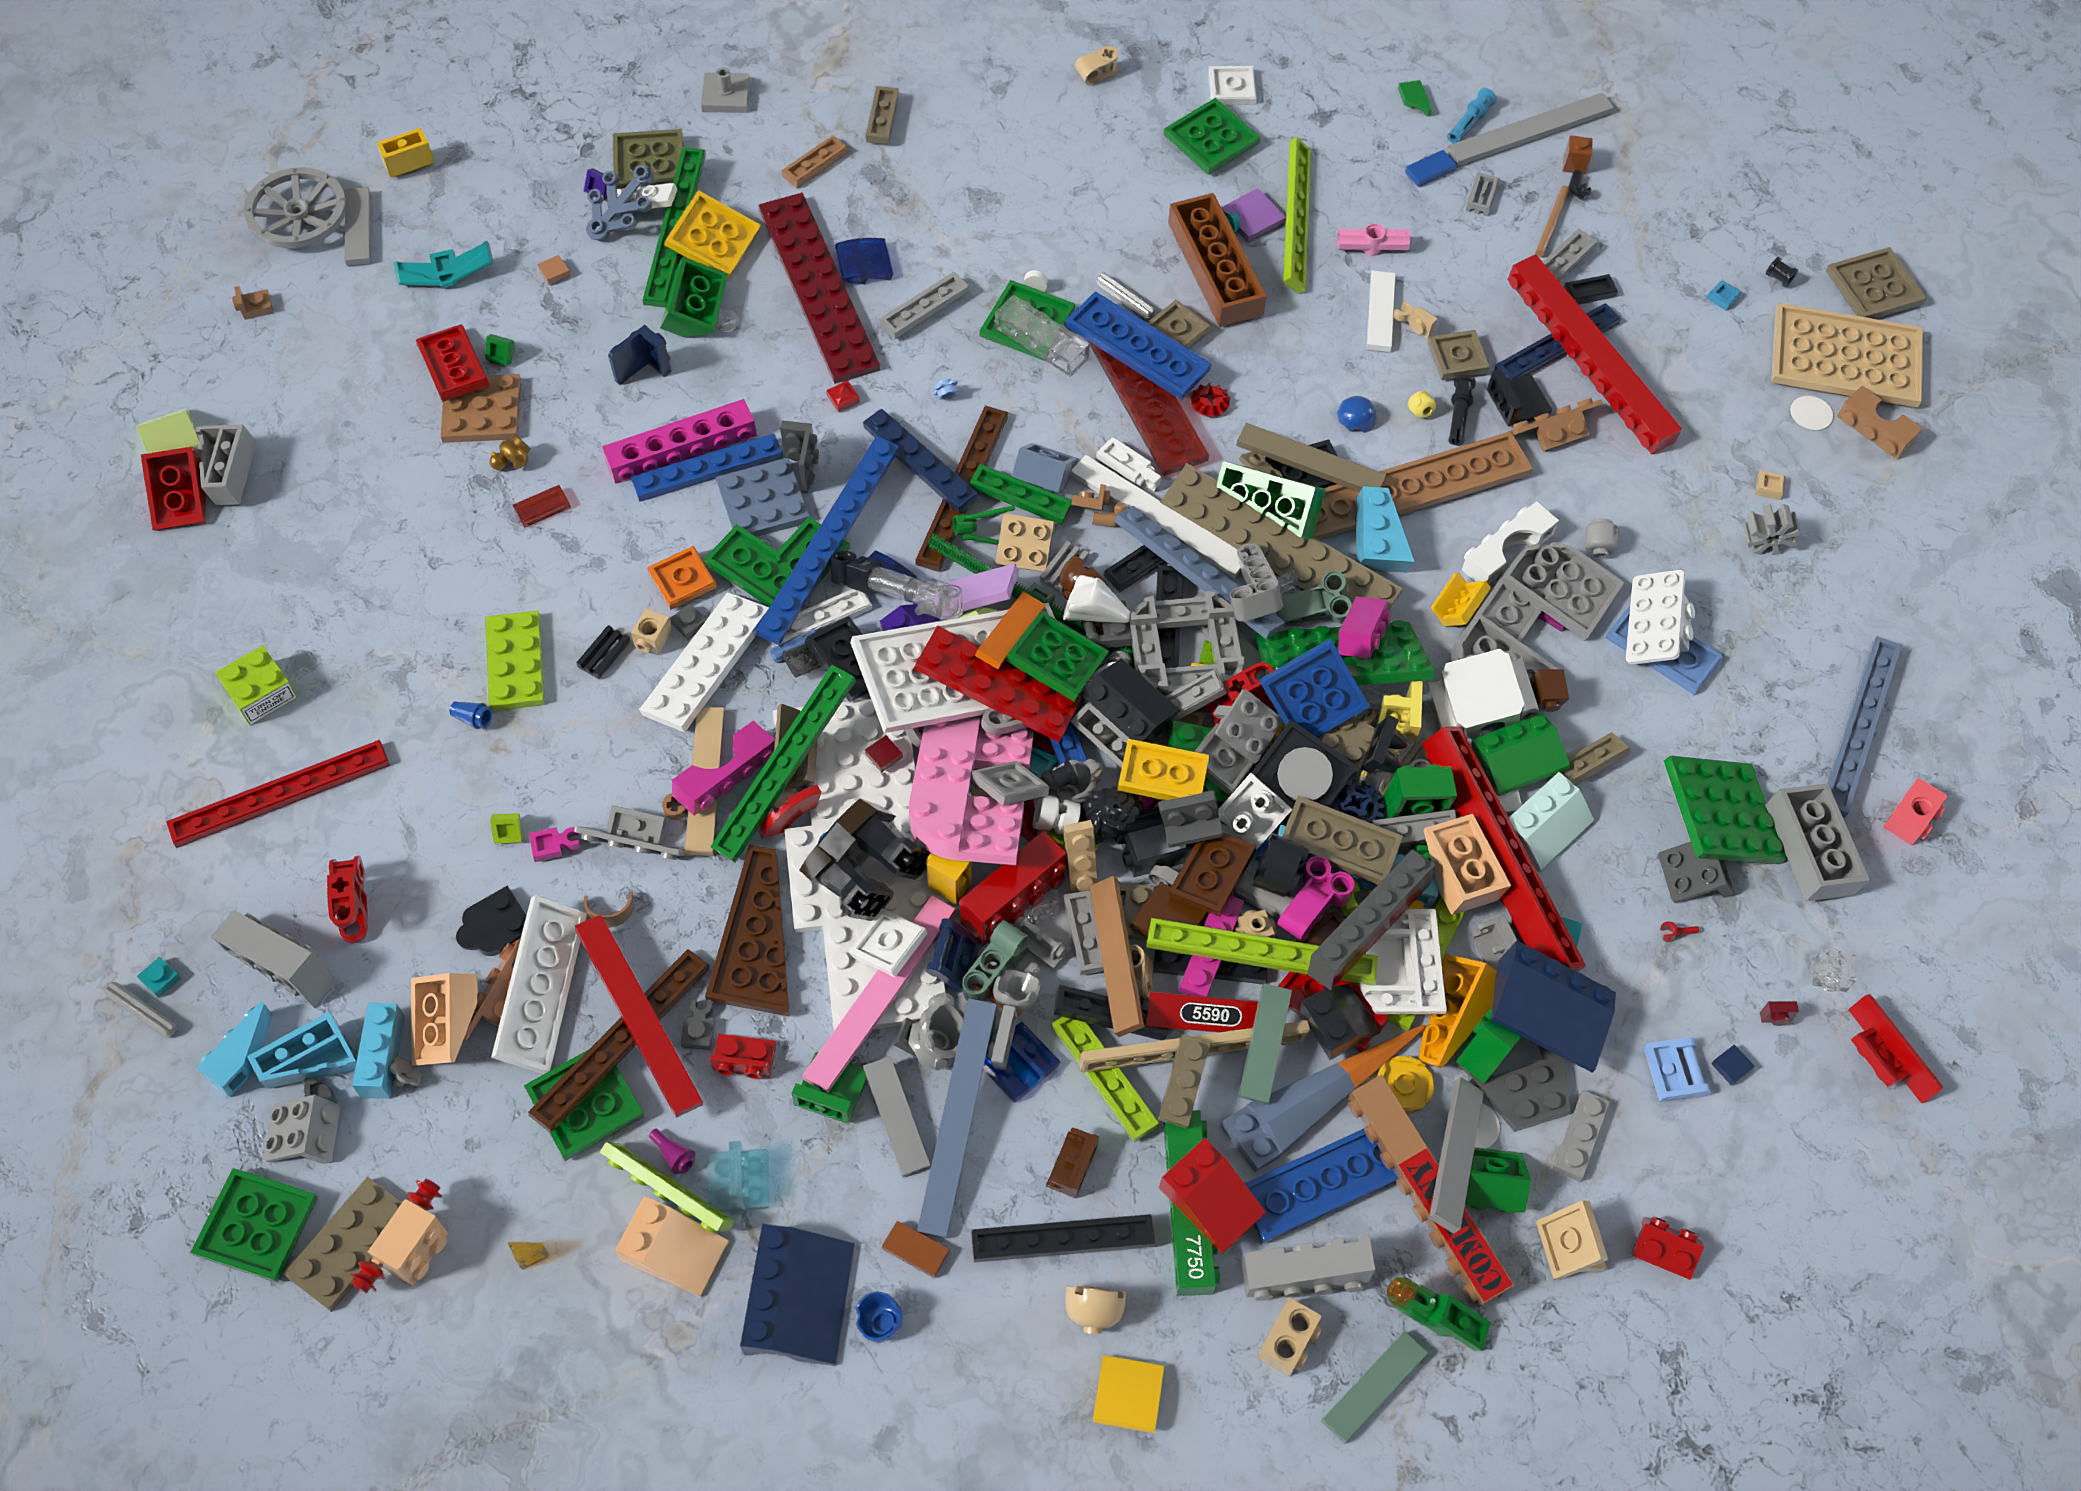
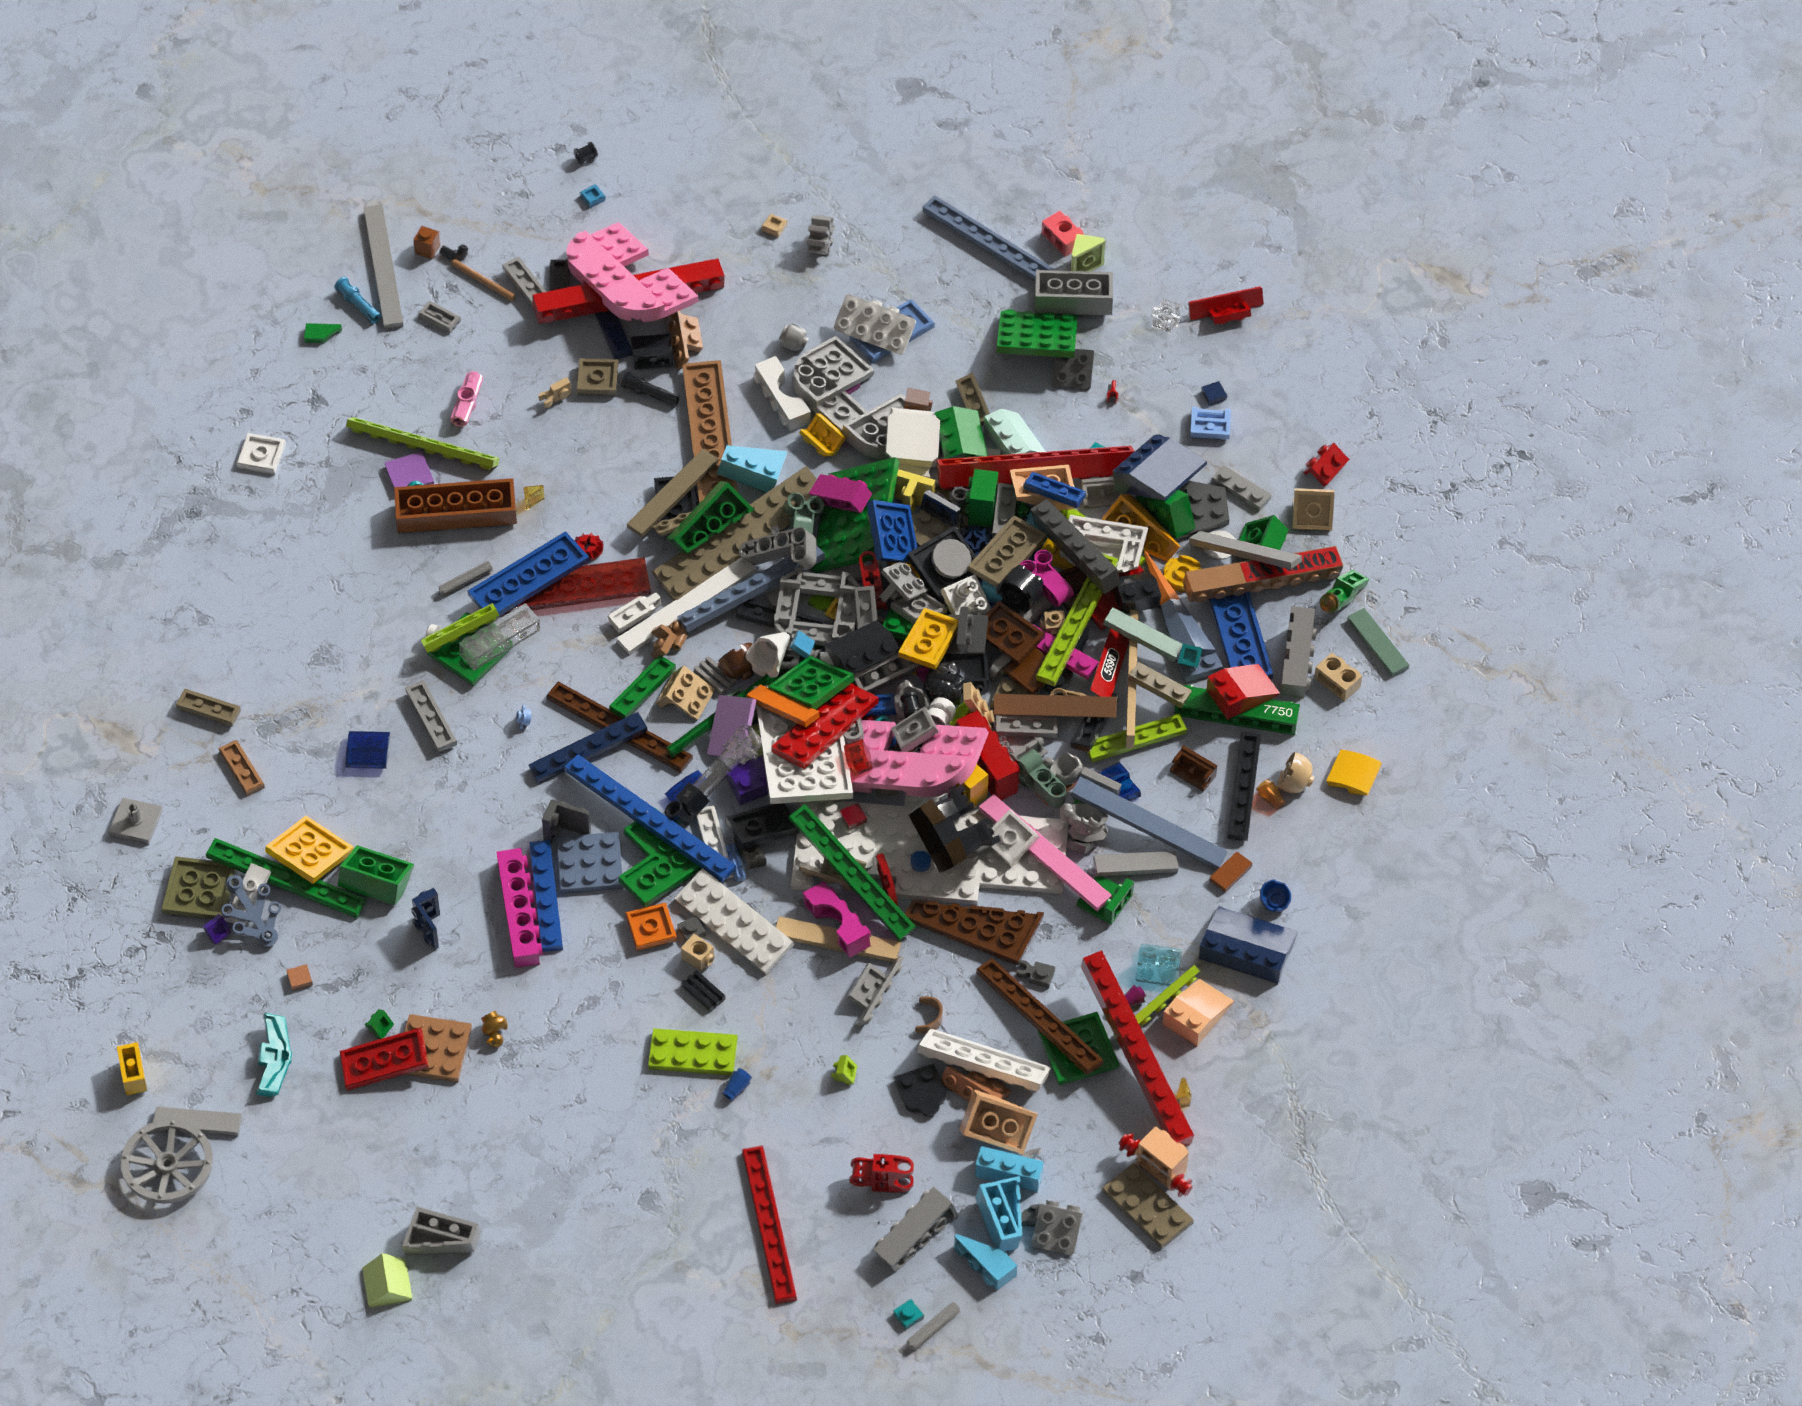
camera: 75 degrees left, 5 degrees down
(174, 488) = (452, 1275): red slope -> none
(252, 304) = (262, 1207): medium nougat bracket -> none
(254, 1225) = (1121, 1260): green plate -> none
(256, 685) = (670, 1227): lime brick -> none
(541, 506) = (548, 1016): clear red tile -> none
(549, 843) = (866, 1043): dark pink plate -> none
(566, 1172) = (1136, 1048): none -> red brick
(639, 1016) = (1016, 1001): red tile -> none
(667, 802) = (854, 968): medium nougat bush -> none
(743, 1056) = (1067, 948): red bracket -> none
(819, 288) = (381, 788): dark red plate -> none
(843, 396) = (504, 790): red tile -> none
(952, 727) = (858, 757): none -> clear red brick
(960, 957) = (1027, 804): dark blue plate -> none
(967, 523) = (662, 727): green plant -> none
(1038, 293) = (455, 630): none -> lime plate
(1043, 467) = (621, 666): sand blue slope -> none
(1057, 1277) = (1269, 792): none -> clear orange cone
(1097, 66) = (209, 541): tan piece -> none
(1120, 637) = (802, 644): none -> dark azure tile
(1132, 568) = (728, 631): black tile -> none
(1180, 324) = (509, 548): dark tan plate -> none
(1211, 136) = (316, 480): green plate -> none
(1251, 1114) = (1190, 655): none -> teal plate
(1259, 329) = (533, 495): none -> clear yellow slope
(1357, 413) = (632, 456): blue hair -> none
(1380, 311) = (536, 415): white tile -> none
(1422, 404) = (638, 412): light yellow piece -> none
(1430, 168) = (401, 343): blue tile -> none
(1453, 872) = (1054, 490): none -> blue tile
(1617, 305) = (601, 262): none -> bright pink plate
(1779, 1012) = (1187, 355): dark red plate -> none
(1811, 412) = (717, 180): white sticker -> none
(1847, 352) = (675, 140): tan plate -> none
(1876, 284) = (616, 100): dark tan plate -> none
(1885, 842) = (1087, 253): none -> yellowish green slope
(1891, 436) = (731, 150): medium nougat arch -> none

